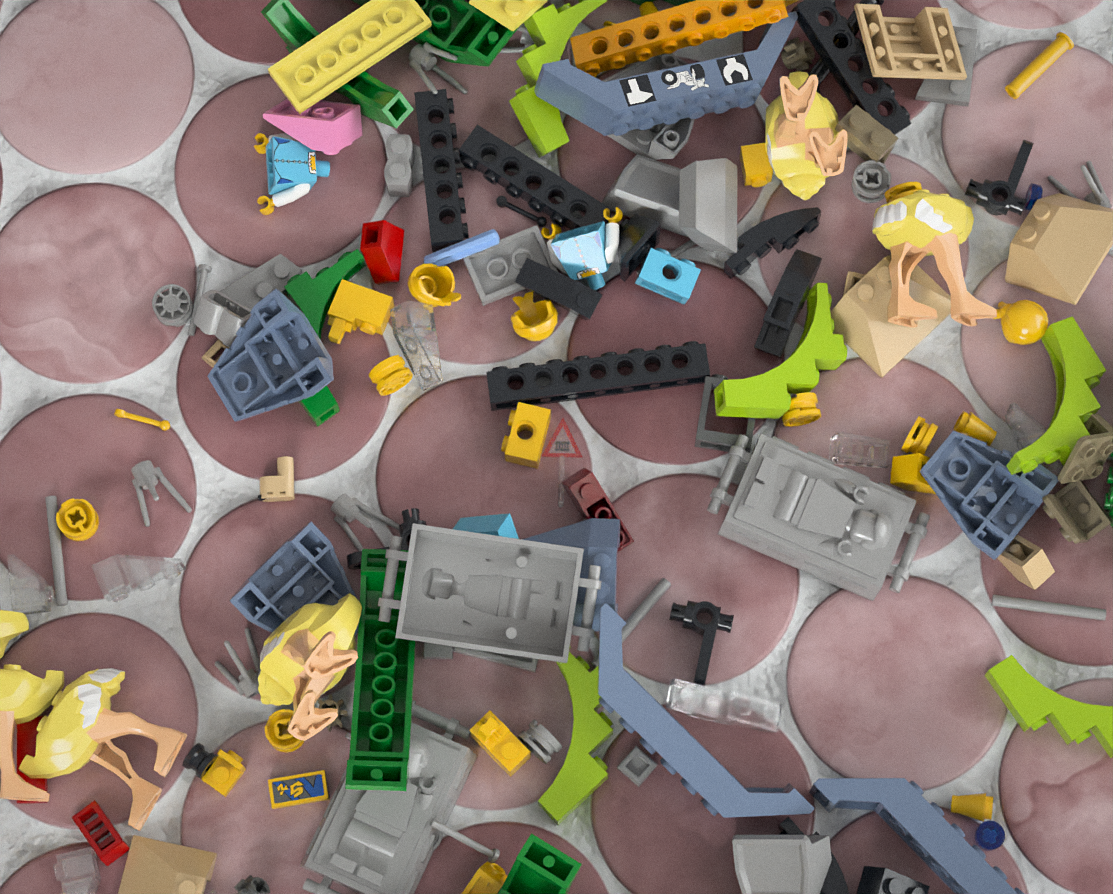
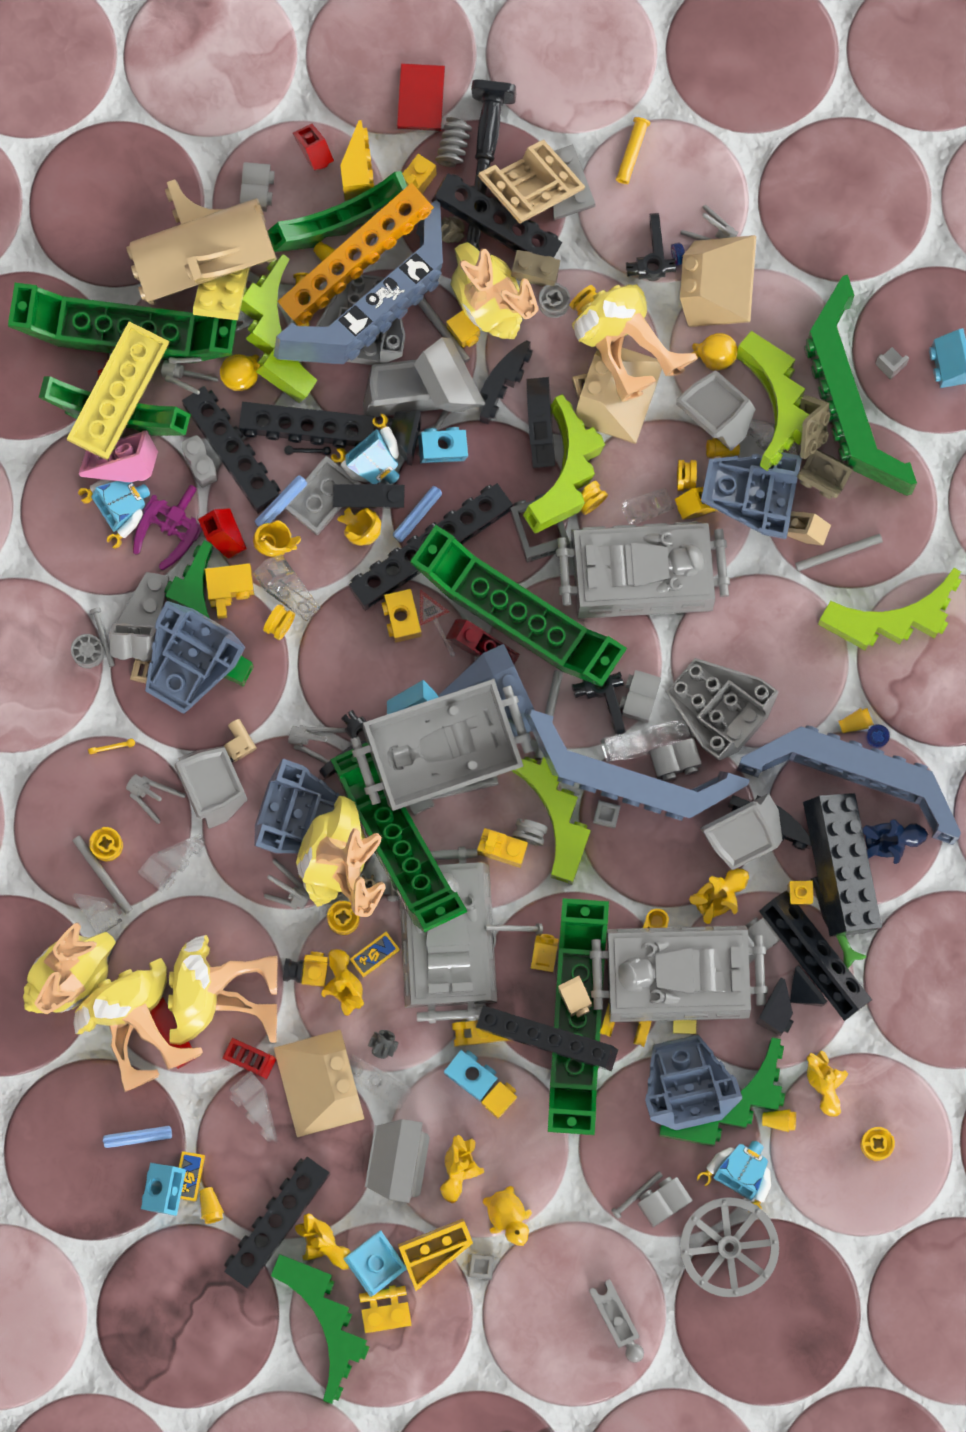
camera: 30 degrees left, 5 degrees up
(222, 512) = (211, 784): none -> light grey helmet
(246, 806) = (345, 984): none -> yellow animal
(342, 212) = (174, 517): none -> magenta bar
(491, 94) = (239, 372): none -> yellow hat
(602, 335) = (417, 514): none -> light blue axle
(651, 487) = (515, 610): none -> green slope
(733, 152) = (436, 321): none -> light grey bar
(742, 654) = (641, 696): none -> light grey brick
(745, 744) = (675, 759): none -> light grey brick
(828, 711) = (721, 705): none -> light grey wedge
(992, 382) = (718, 409): none -> light grey helmet

